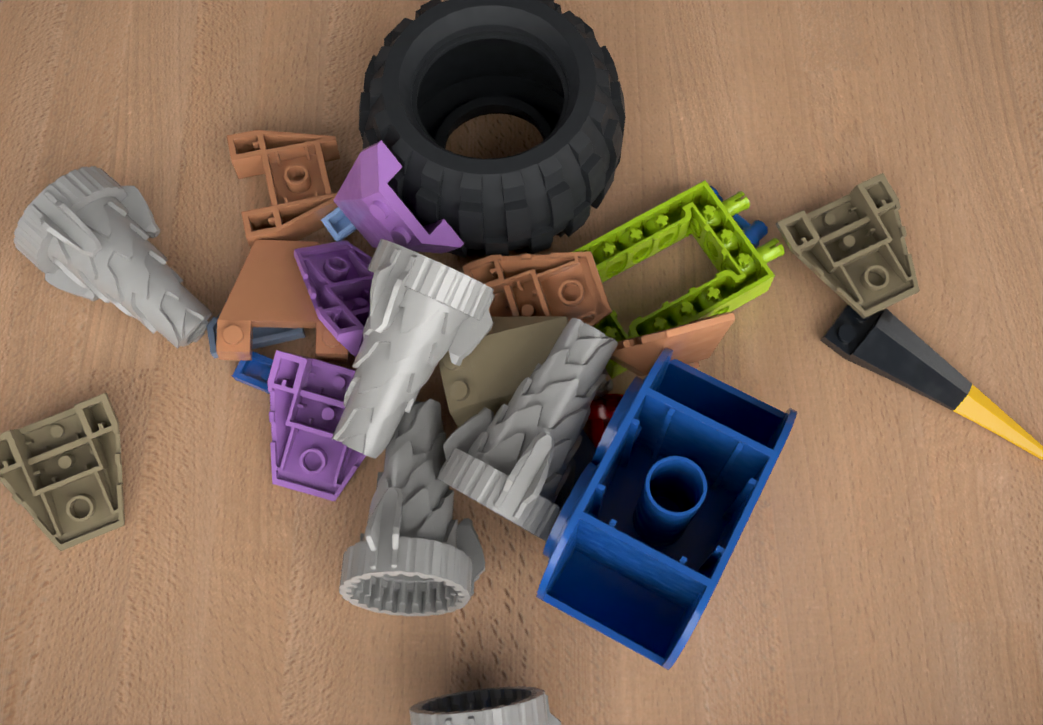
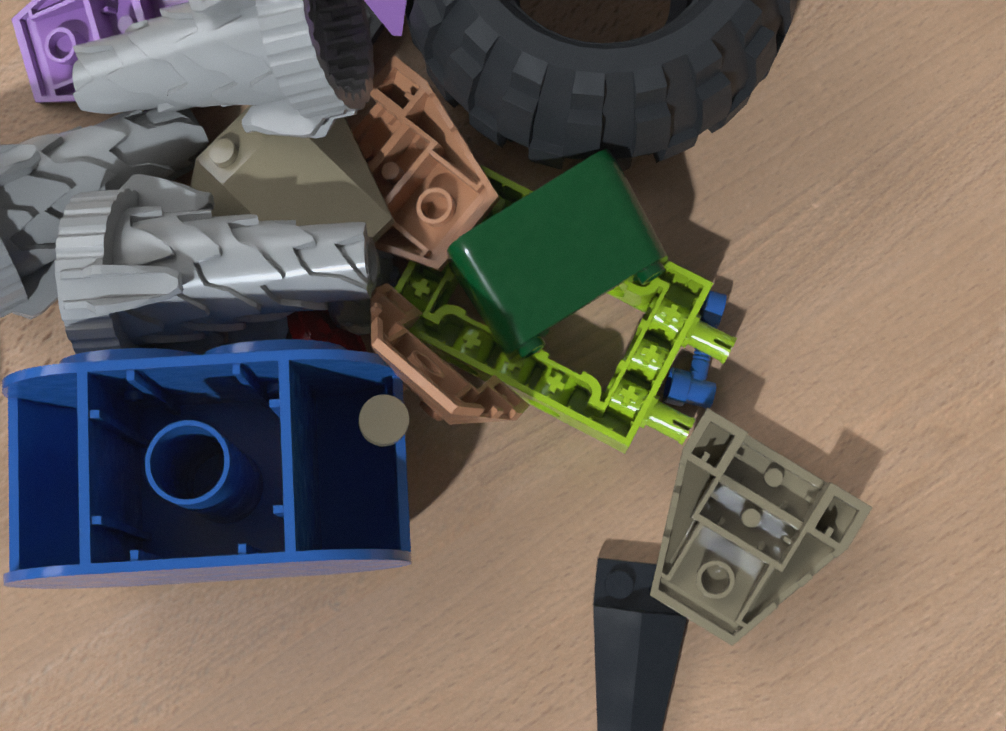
camera: 55 degrees right, 10 degrees up
(646, 244) = (556, 253): none -> dark green windscreen
(697, 379) = (383, 420): none -> dark tan tile

